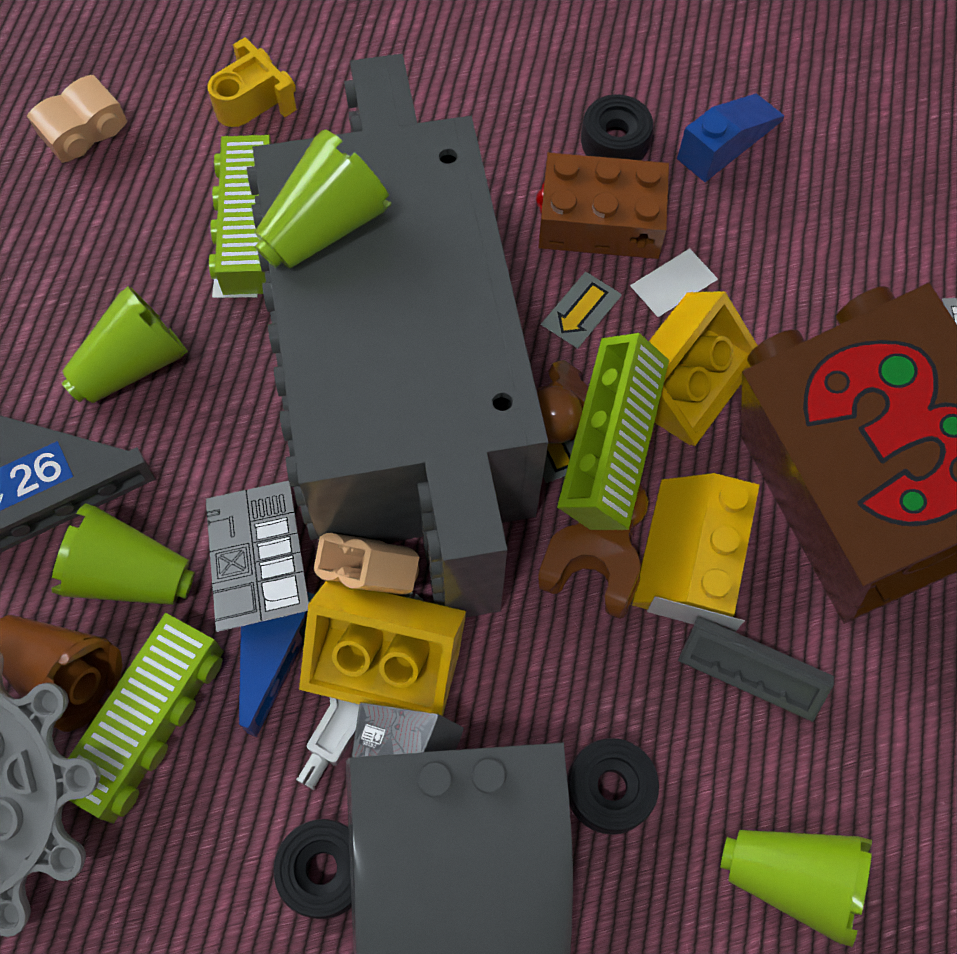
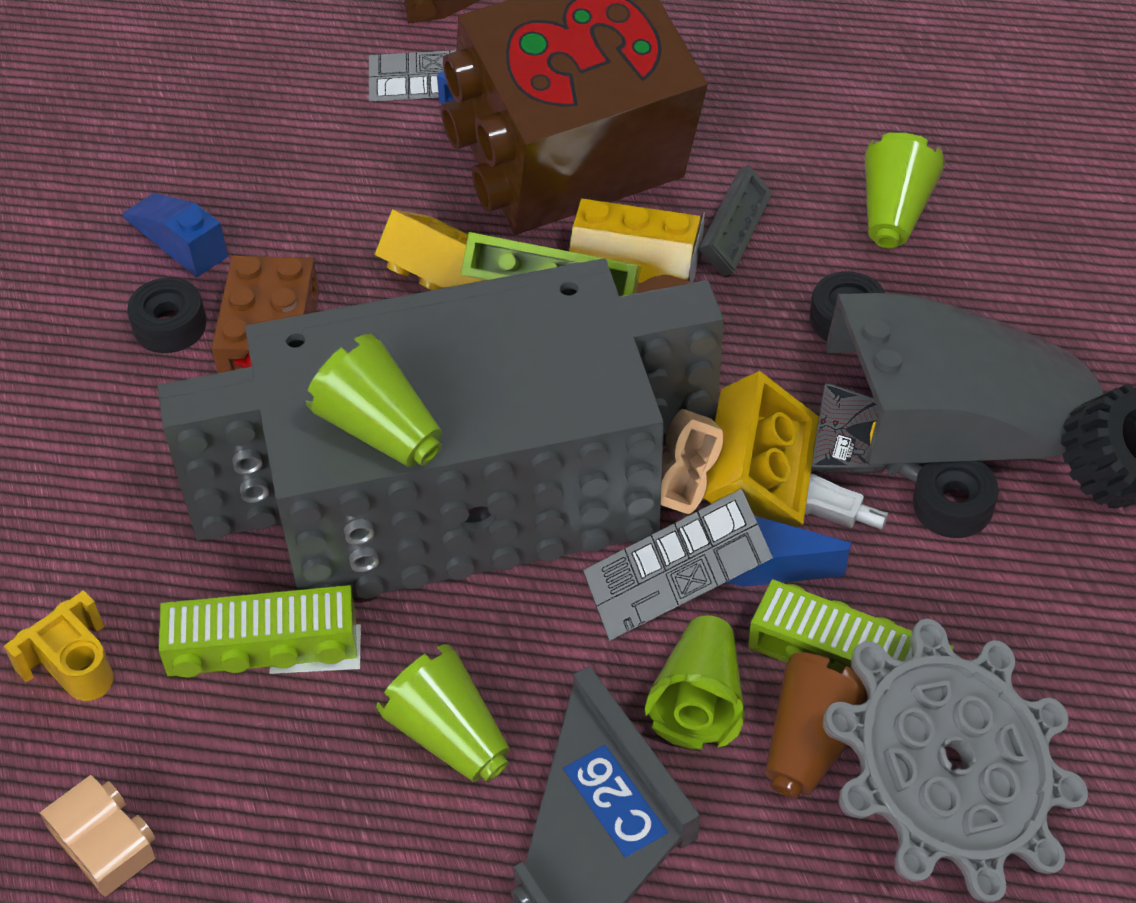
camera: 90 degrees left, 15 degrees down
(670, 282) = (348, 278): white sticker -> none

